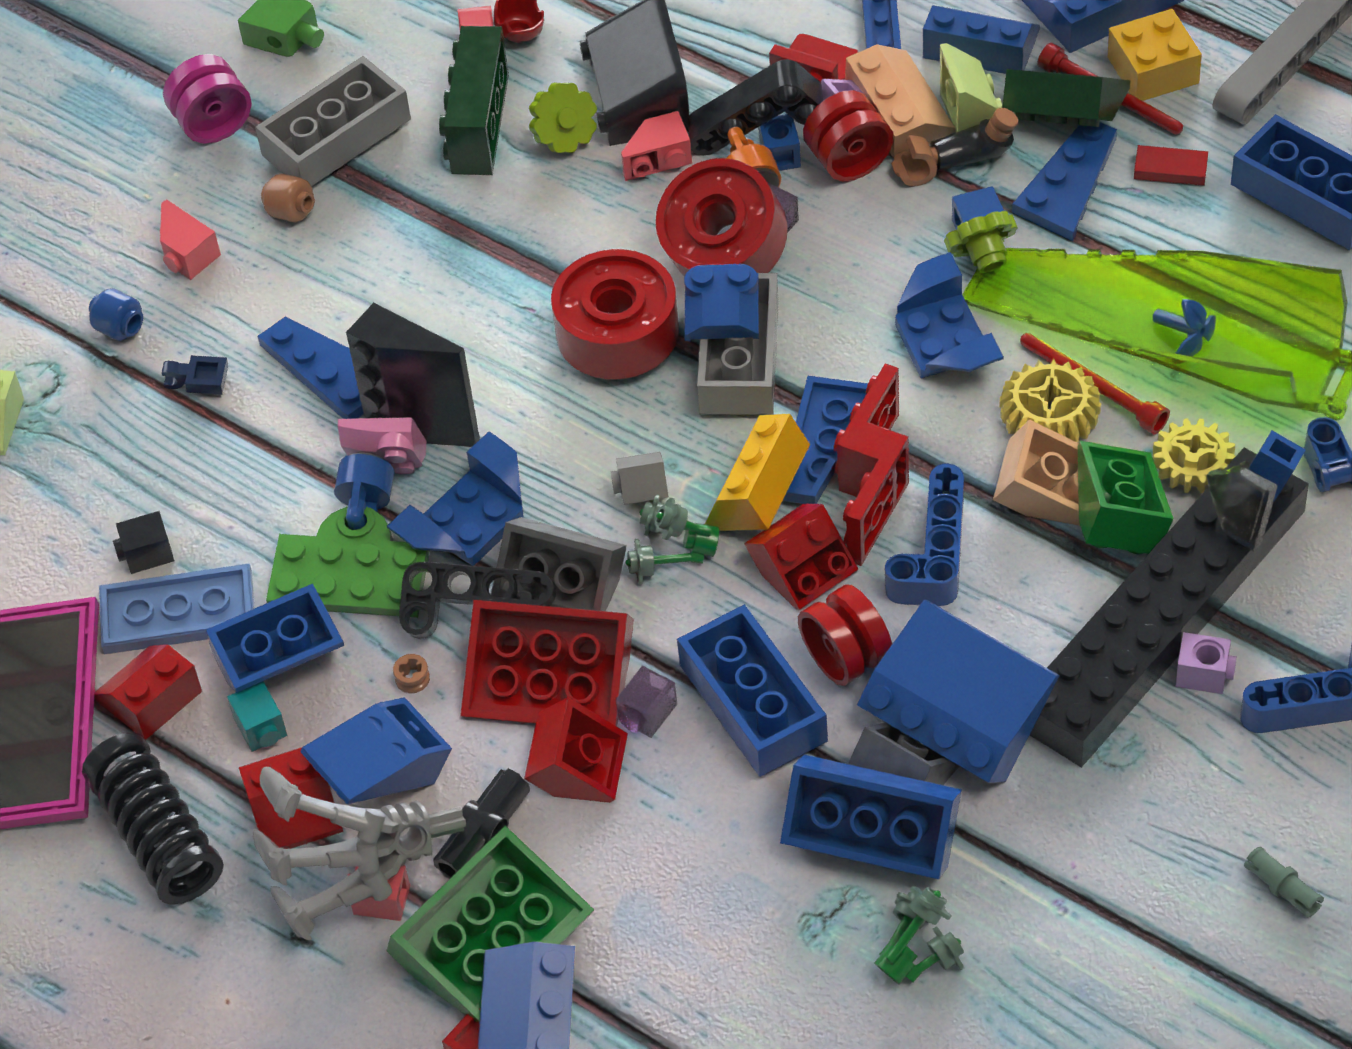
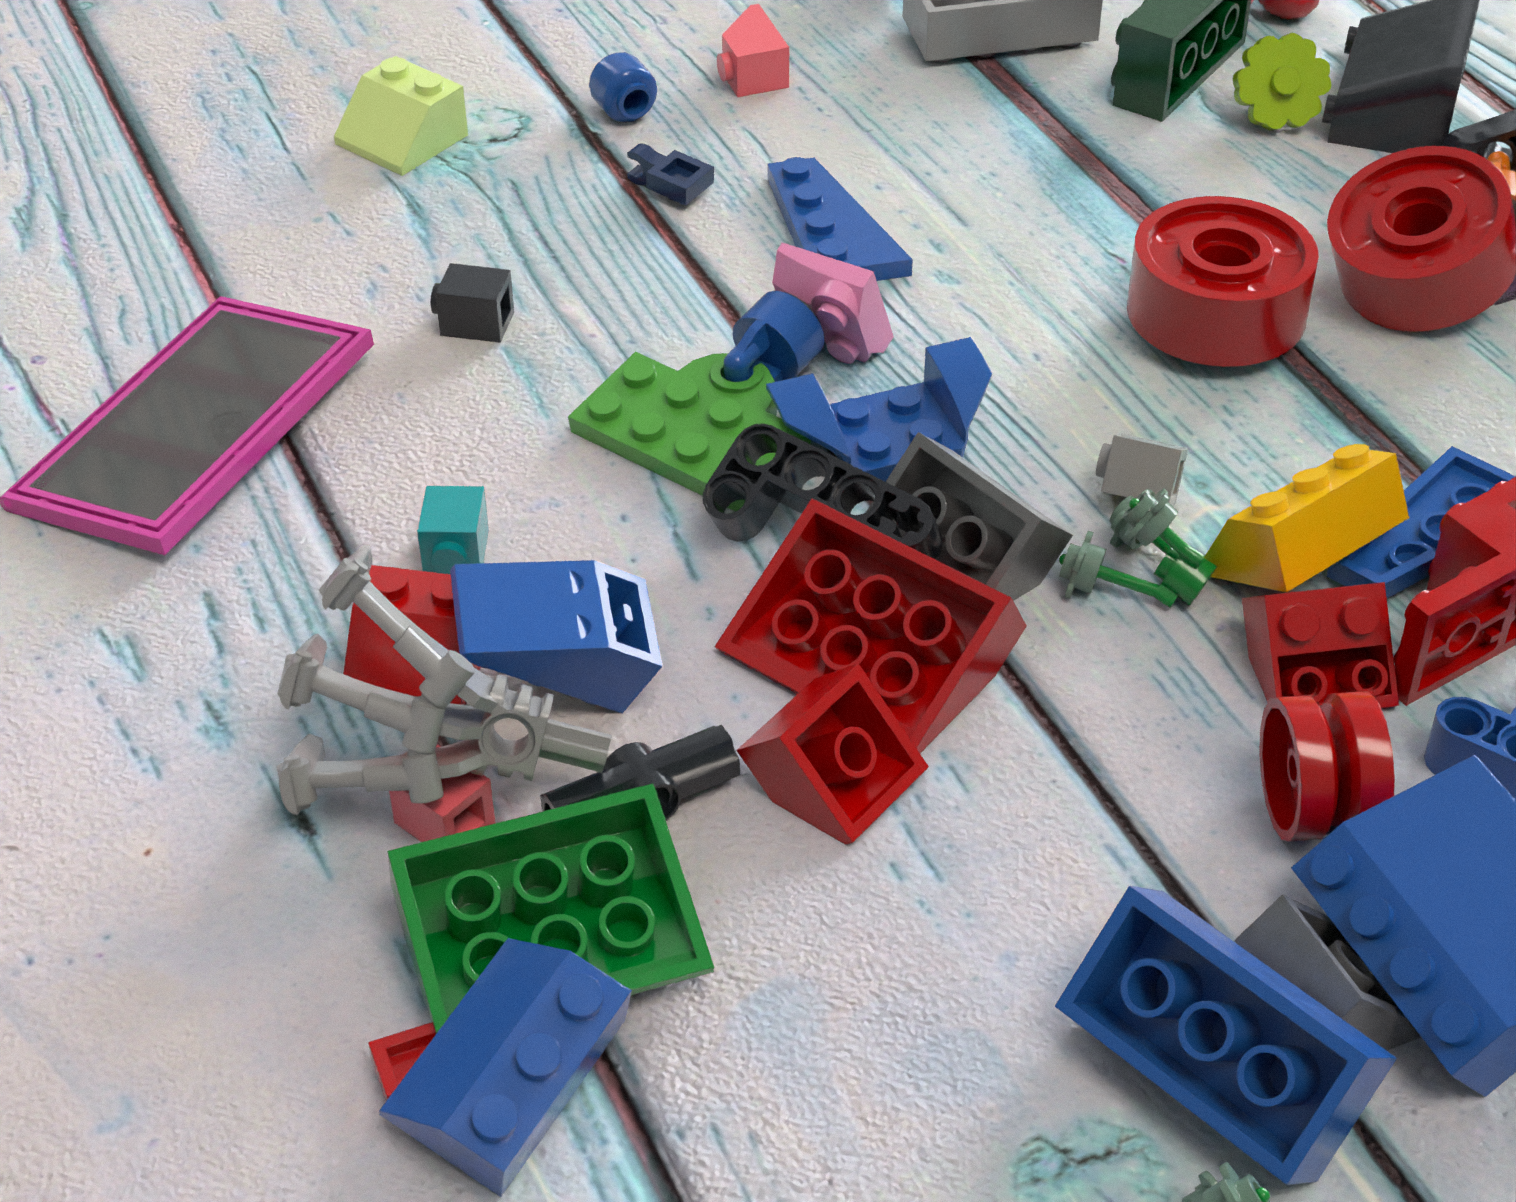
camera: 25 degrees right, 10 degrees down
(150, 689) = (354, 453): red slope -> none
(154, 813) = (223, 578): black piece -> none
(172, 607) = (461, 387): medium blue tile -> none
(273, 638) = (534, 445): blue slope -> none
(288, 197) = (900, 54): nougat head -> none
(414, 376) = (907, 221): black slope -> none
(419, 679) = (686, 570): nougat bush -> none
(646, 702) = (977, 734): clear purple brick -> none
(657, 147) = (1375, 139): coral slope -> none
(721, 302) = (1373, 305): blue slope -> none
(740, 372) = (1372, 371): light grey brick -> none
(752, 690) = (1142, 781): blue brick -> none

